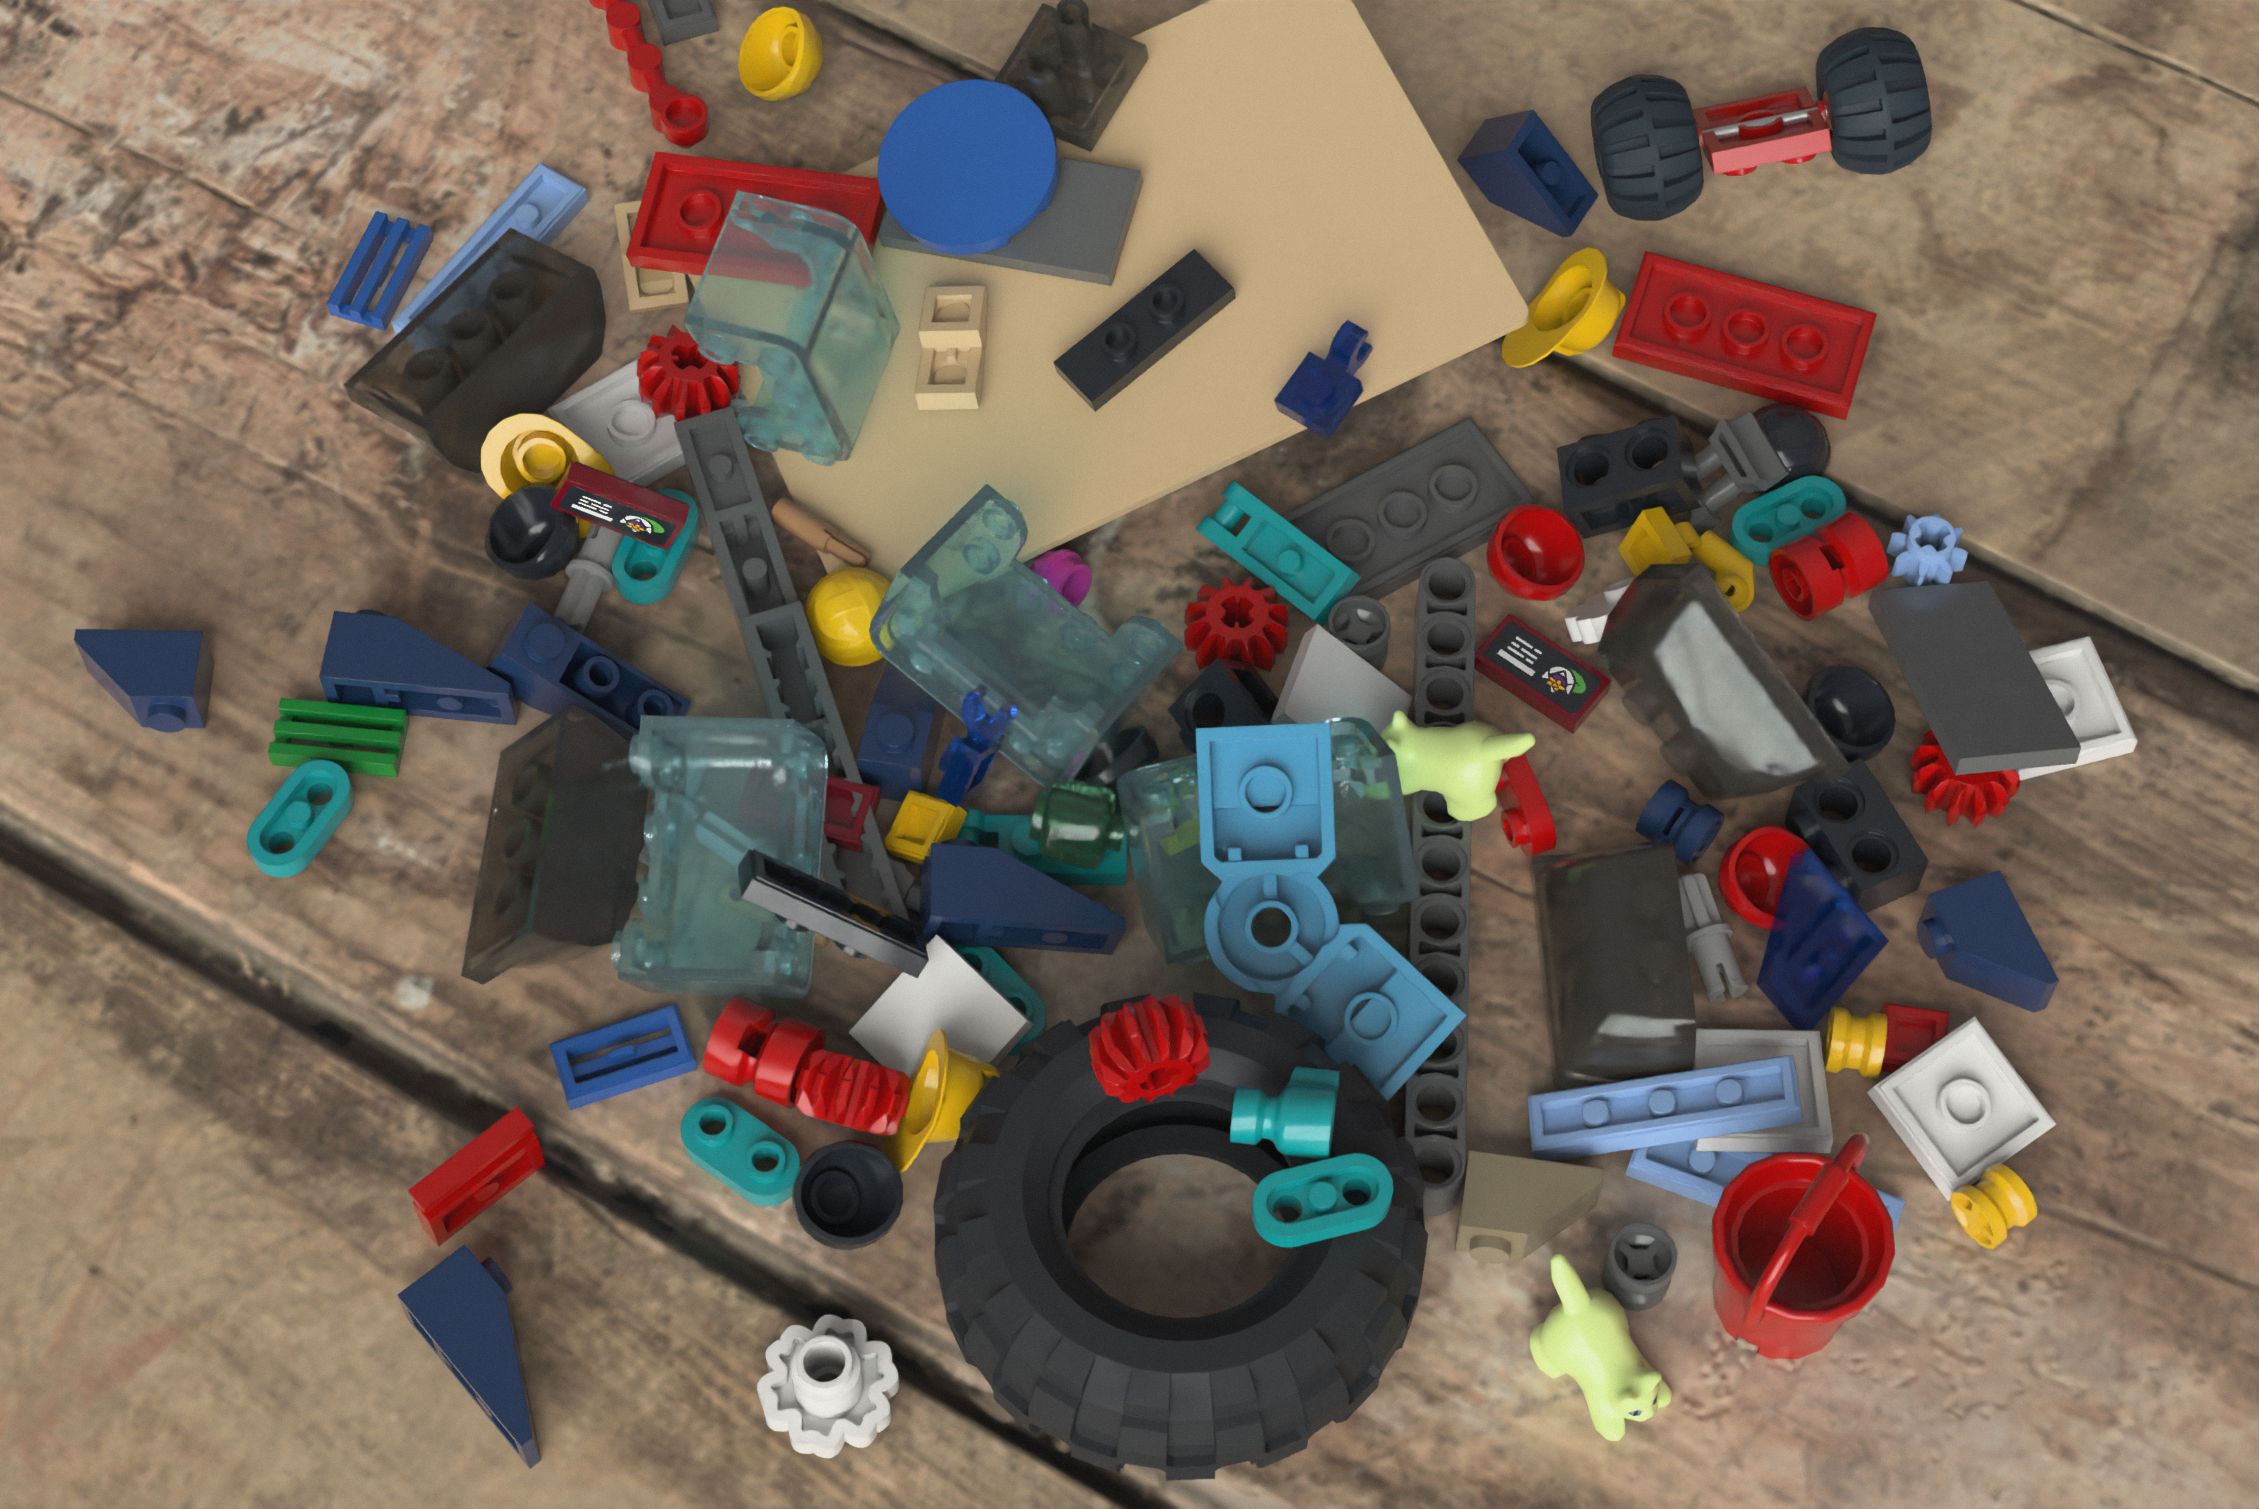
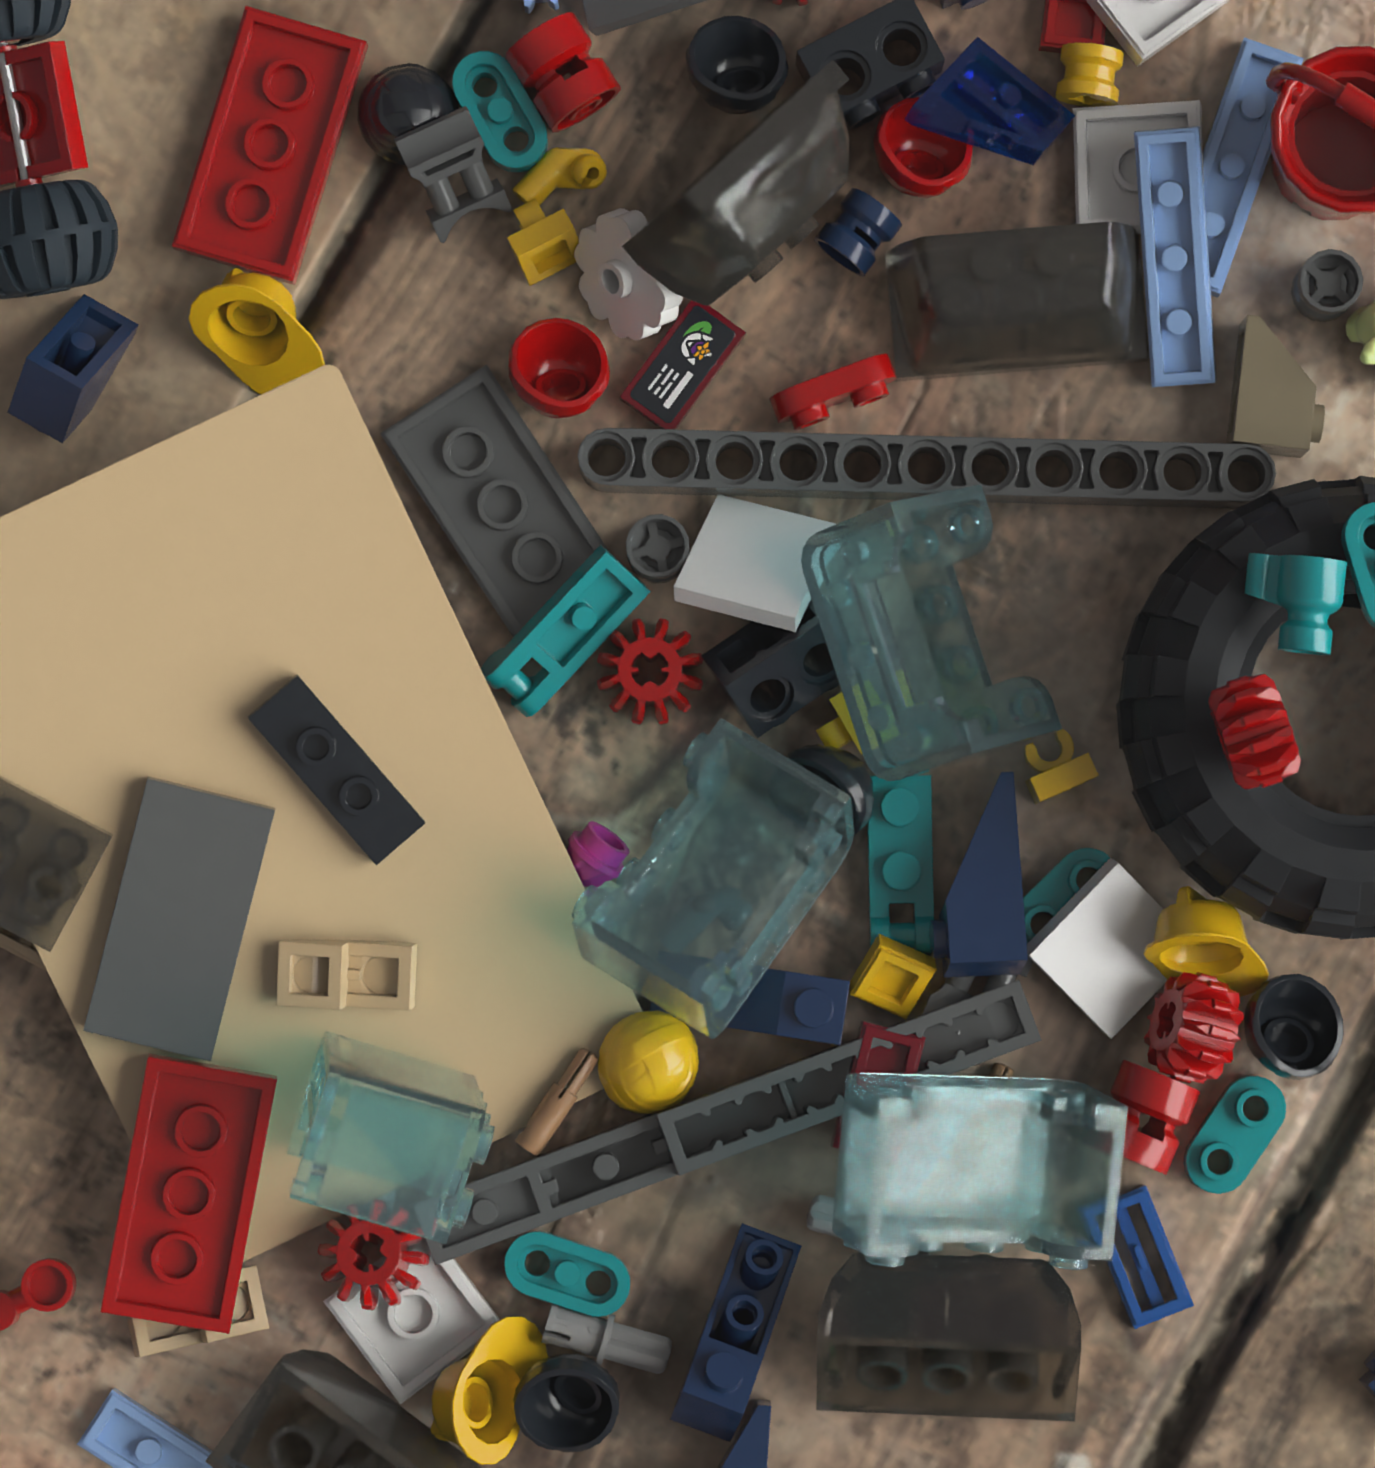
camera: 90 degrees left, 25 degrees up
(477, 1176) = (1304, 1403): red plate -> none
(620, 505) = (558, 1309): tile -> none
(851, 922) = (1037, 1055): black plate -> none
(968, 166) = (144, 964): blue tile -> none
(970, 758) = (832, 930): clear blue plate -> none
(1077, 823) = (907, 822): clear green head -> none
(1119, 979) = (1059, 774): none -> yellow tile
(1269, 840) = (1084, 565): dark azure plate -> none
(1326, 390) = (418, 580): clear blue plate -> none
(1454, 761) = (834, 445): yellowish green animal -> none
(1629, 480) = (479, 269): black brick -> none
(1709, 939) = (979, 208): light grey axle -> none

